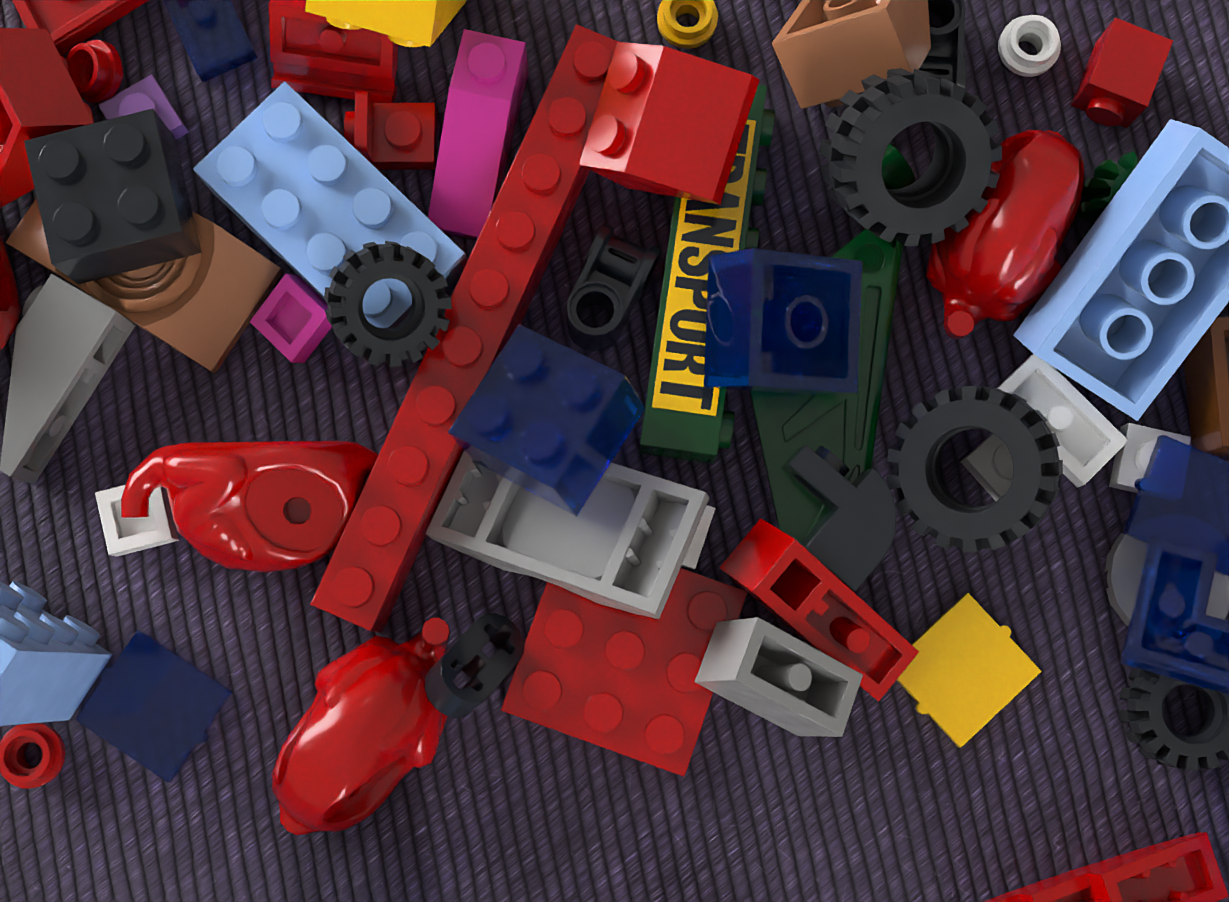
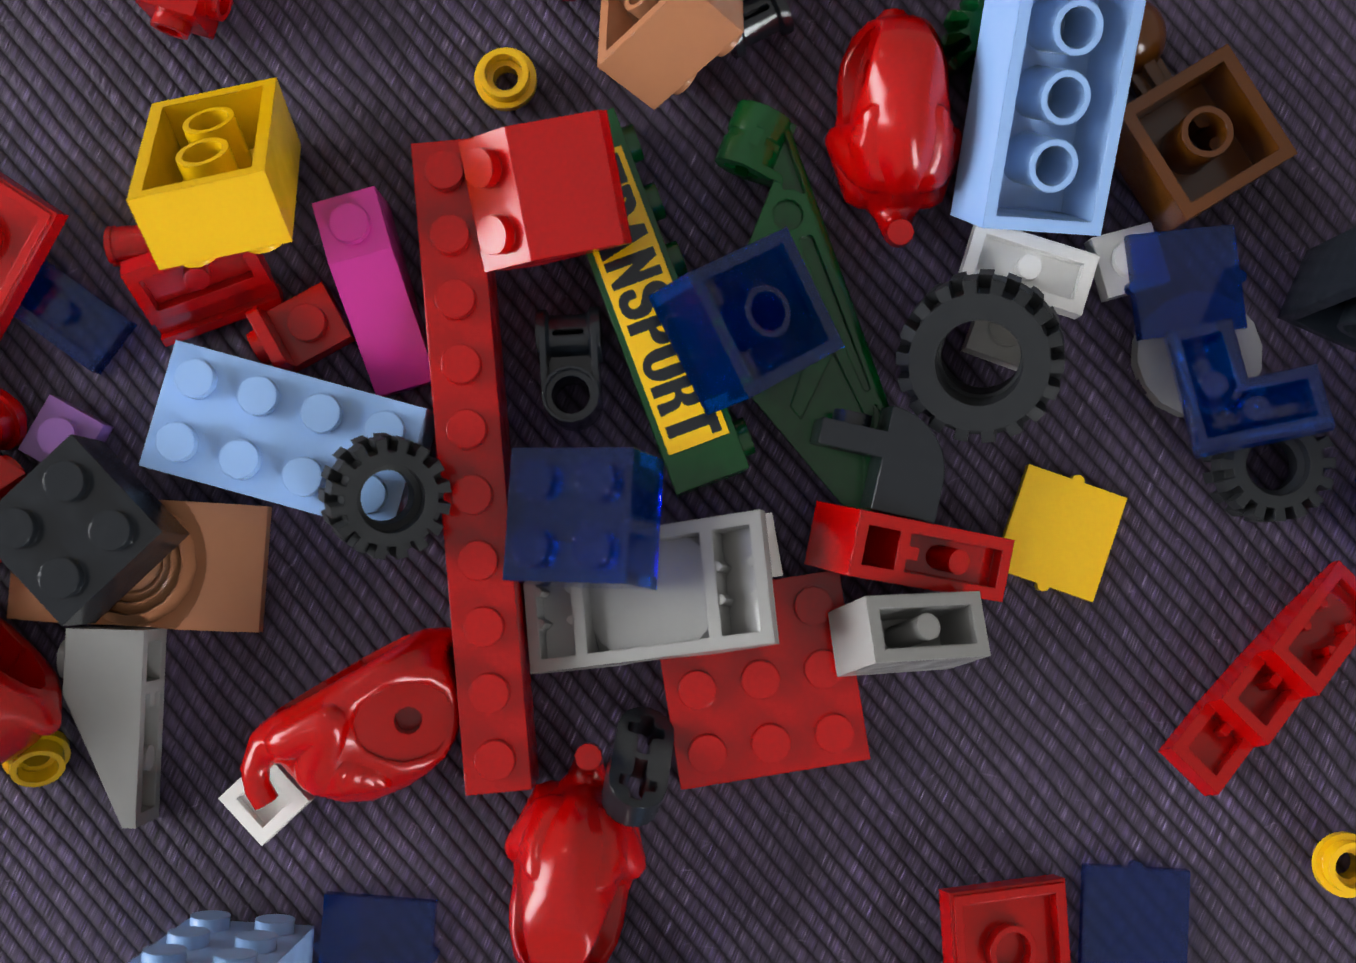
camera: 25 degrees left, 5 degrees up
(293, 318) = (304, 547): dark pink plate -> none
(948, 186) = (825, 115): black tyre -> none

